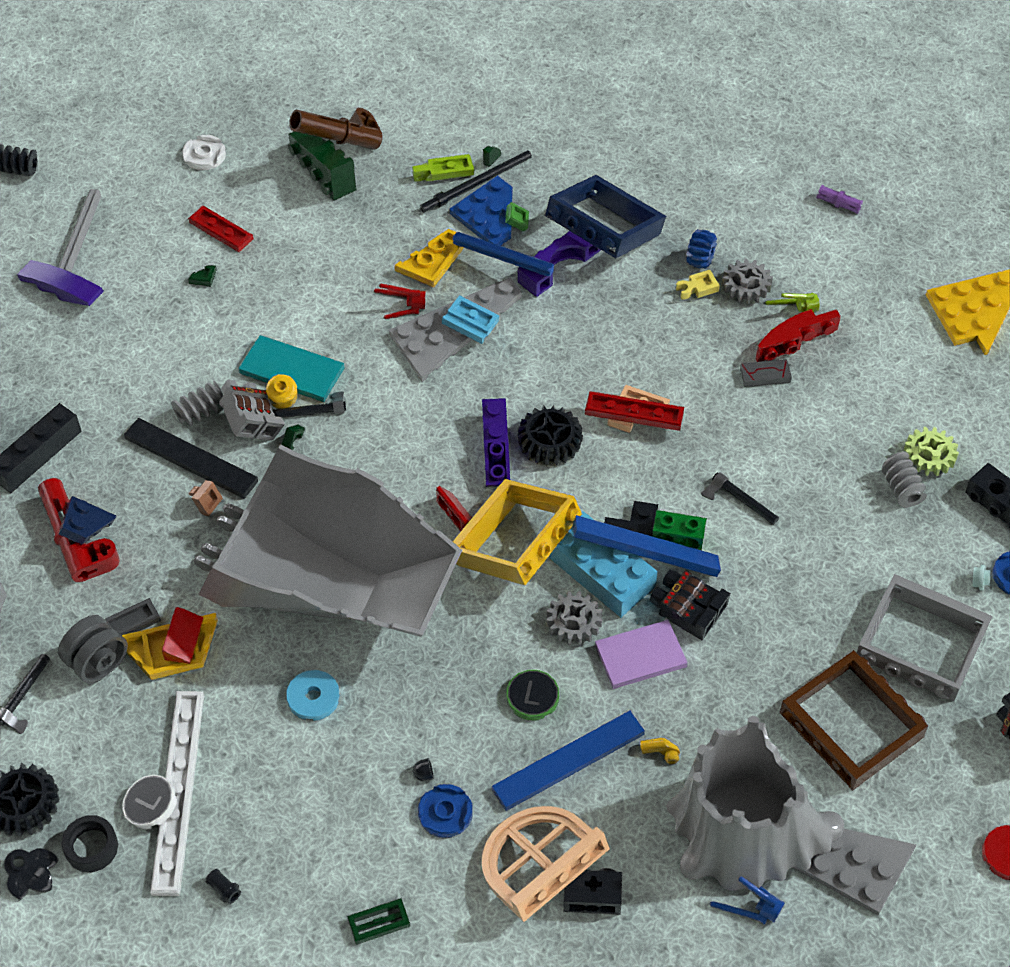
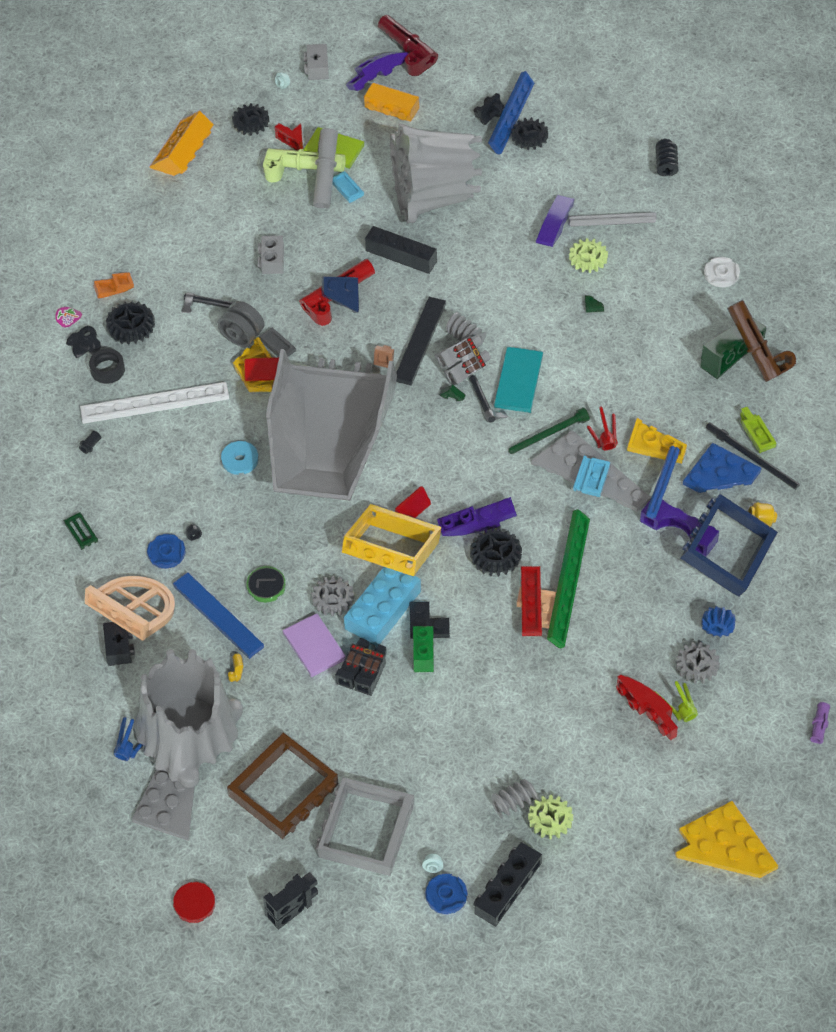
camera: 80 degrees right, 0 degrees up
(140, 263) = (588, 255): none -> yellowish green gear
(149, 801) = (140, 387): black tile -> none
(220, 228) = (644, 302): red tile -> none
(281, 391) = (487, 375): yellow head -> none
(371, 318) = (580, 416): none -> dark green piece
(490, 155) = (783, 459): dark green tile -> none
(517, 216) = (718, 487): bright green tile -> none
(561, 181) = (764, 512): none -> yellow head
(606, 372) = (568, 579): none -> green tile
(646, 546) = (396, 624): blue tile -> none
(700, 284) = (684, 631): light yellow plate -> none
(721, 481) = (484, 674): black piece -> none
(765, 373) = (604, 691): dark grey tile -> none

